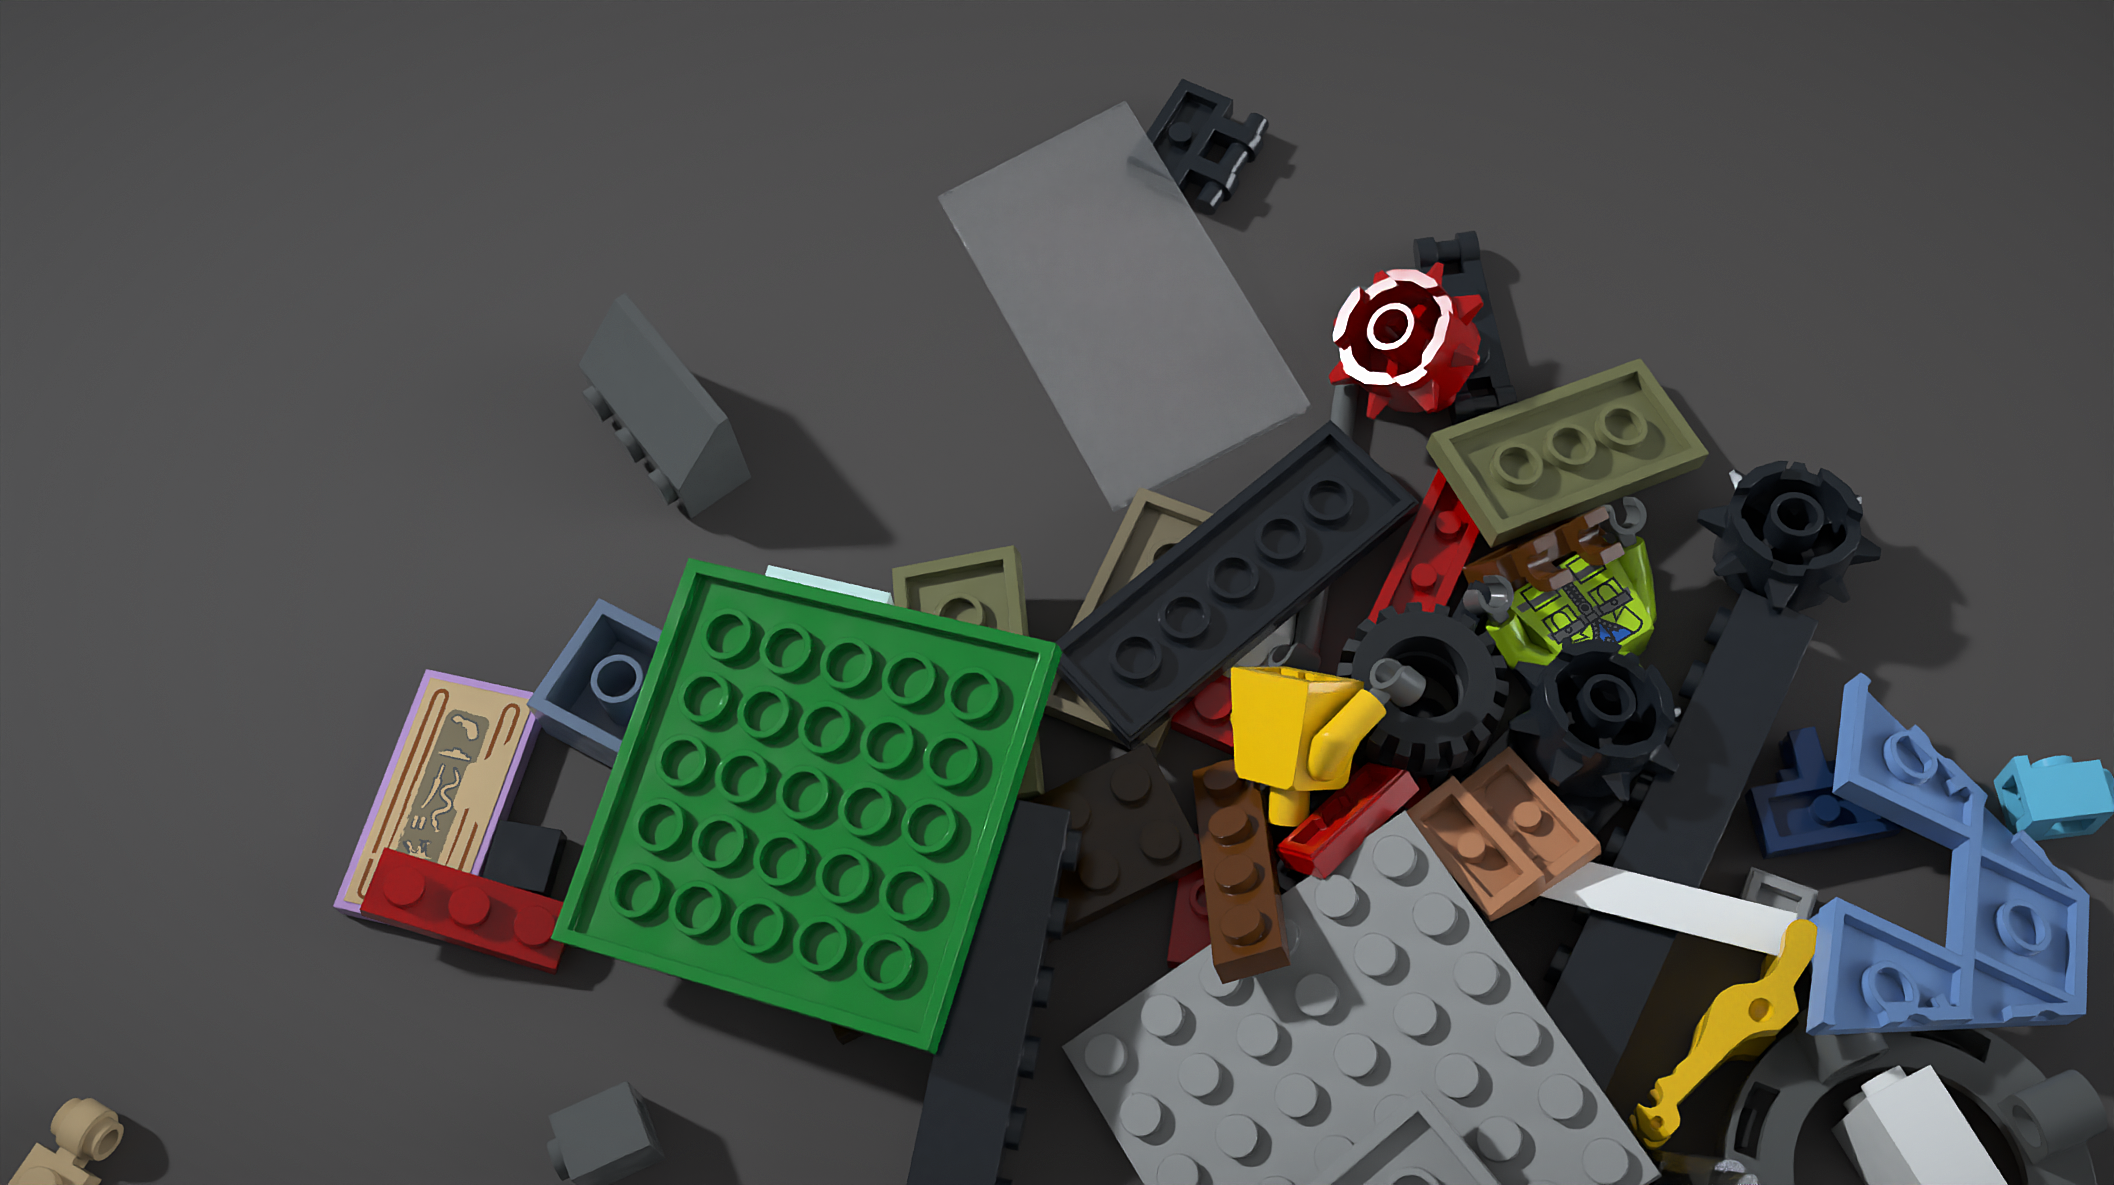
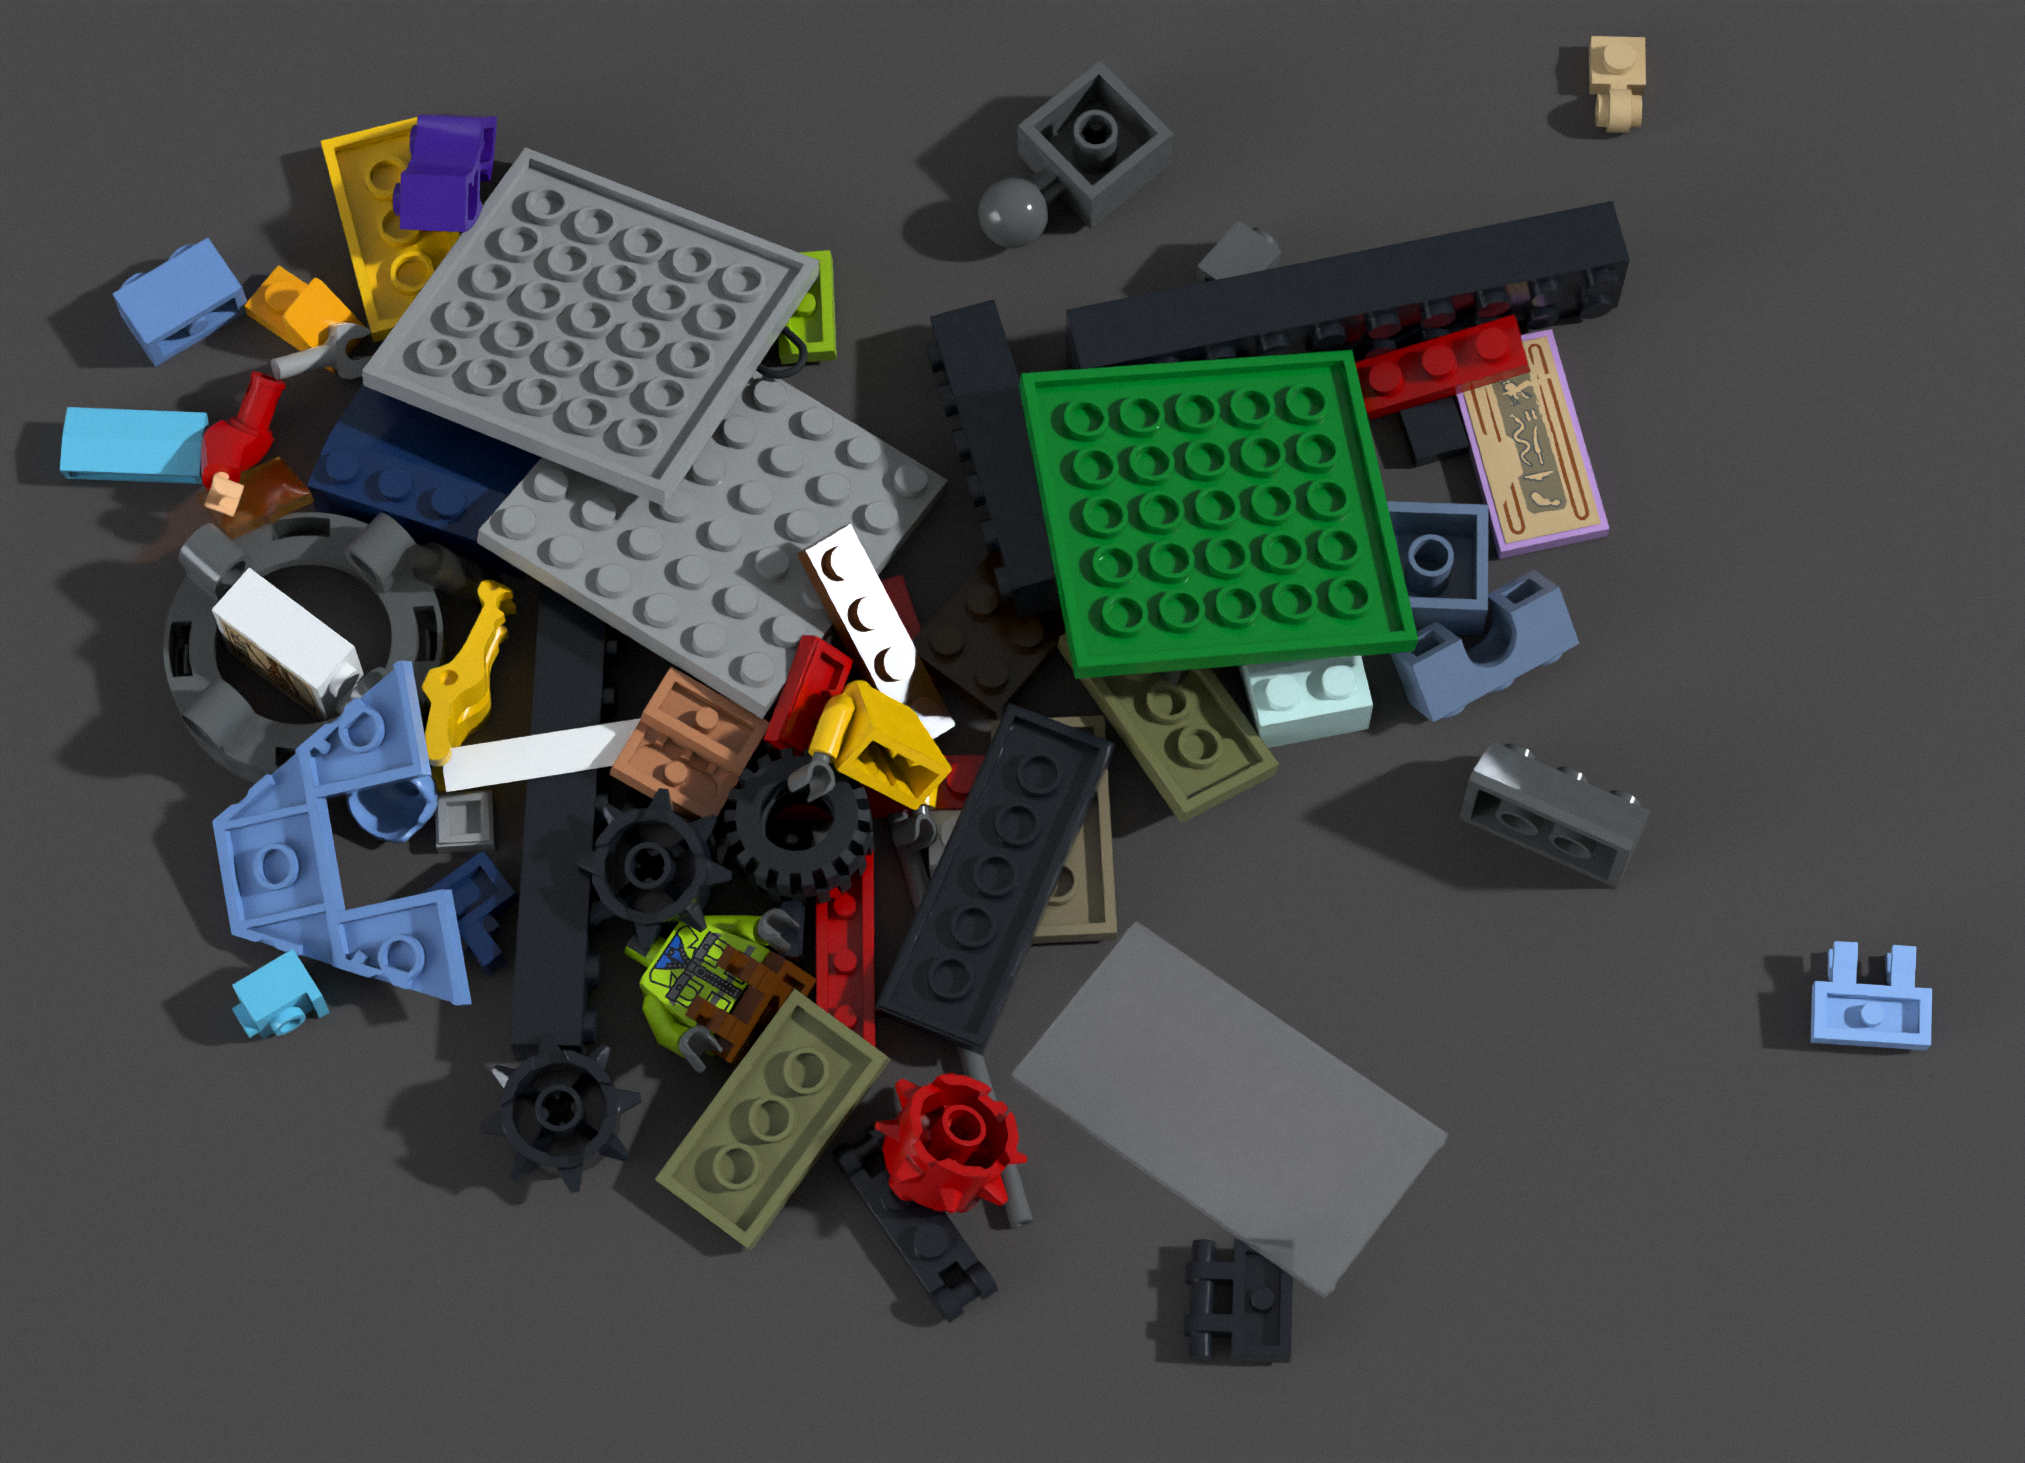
camera: 145 degrees right, 5 degrees up
(514, 148) = (1869, 1013): none -> light blue plate
(528, 1007) = (1371, 297): none -> black brick
(563, 589) = (1526, 633): none -> sand blue arch

